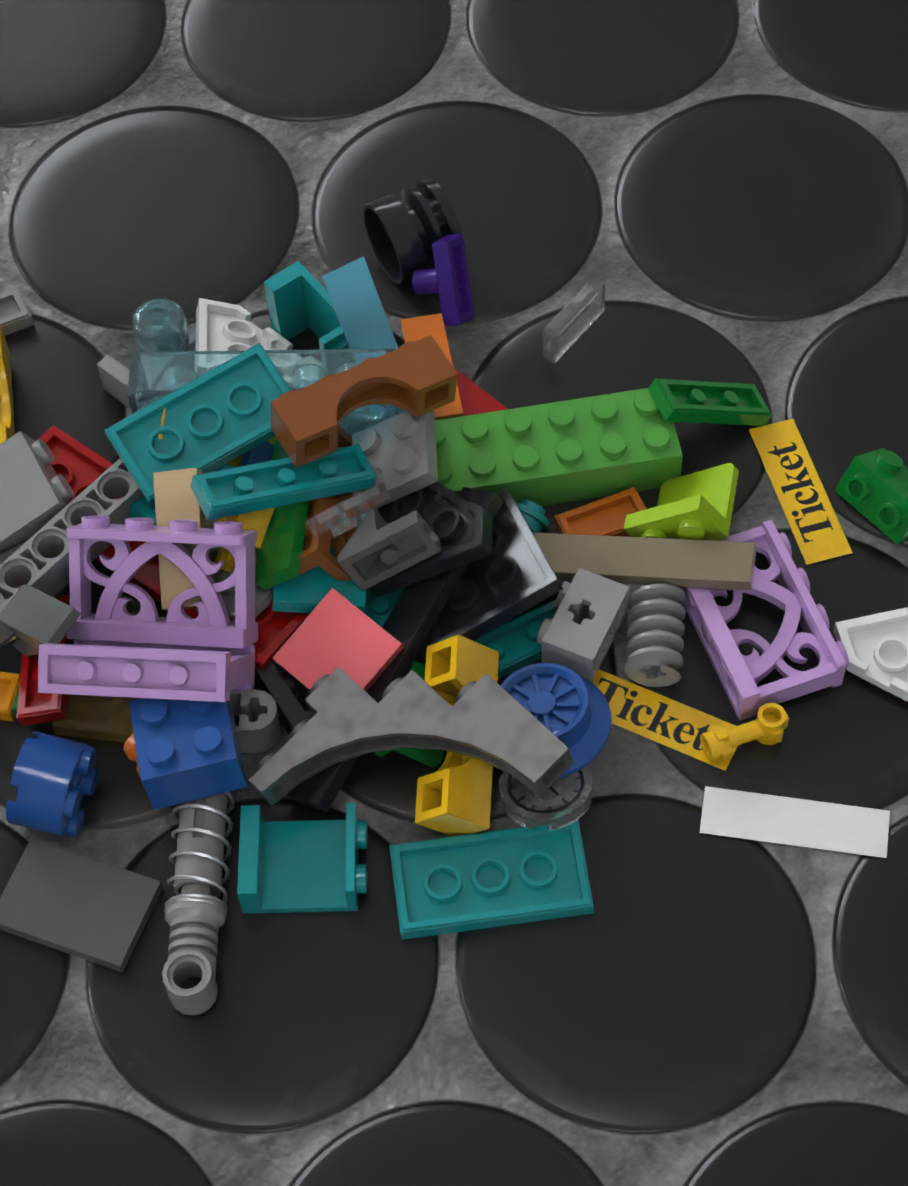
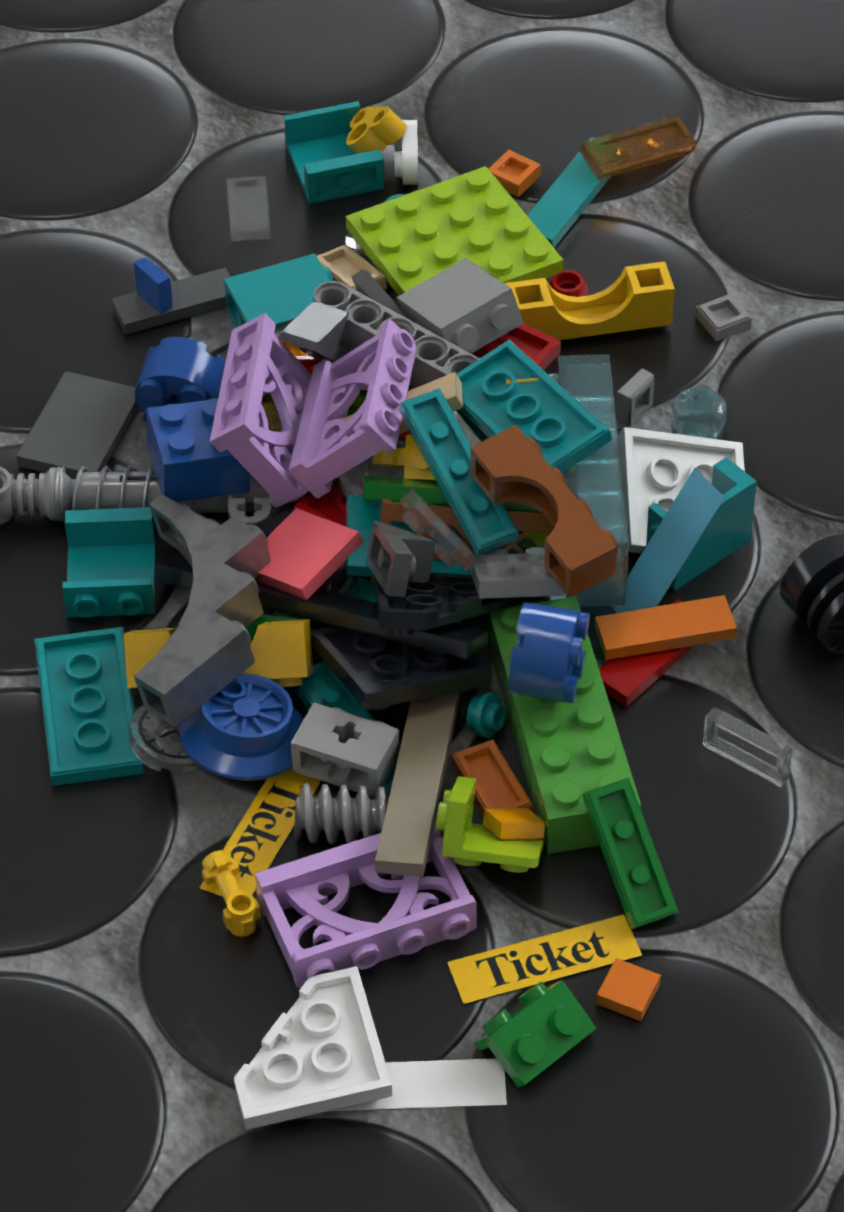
camera: 85 degrees right, 10 degrees down
(448, 279) = (773, 627): dark purple tile -> none
(522, 420) = (548, 652): none -> blue brick
(664, 489) = (514, 824): none -> light orange tile
(795, 822) = (139, 945): white sticker -> none
(836, 425) = (628, 989): none -> orange tile

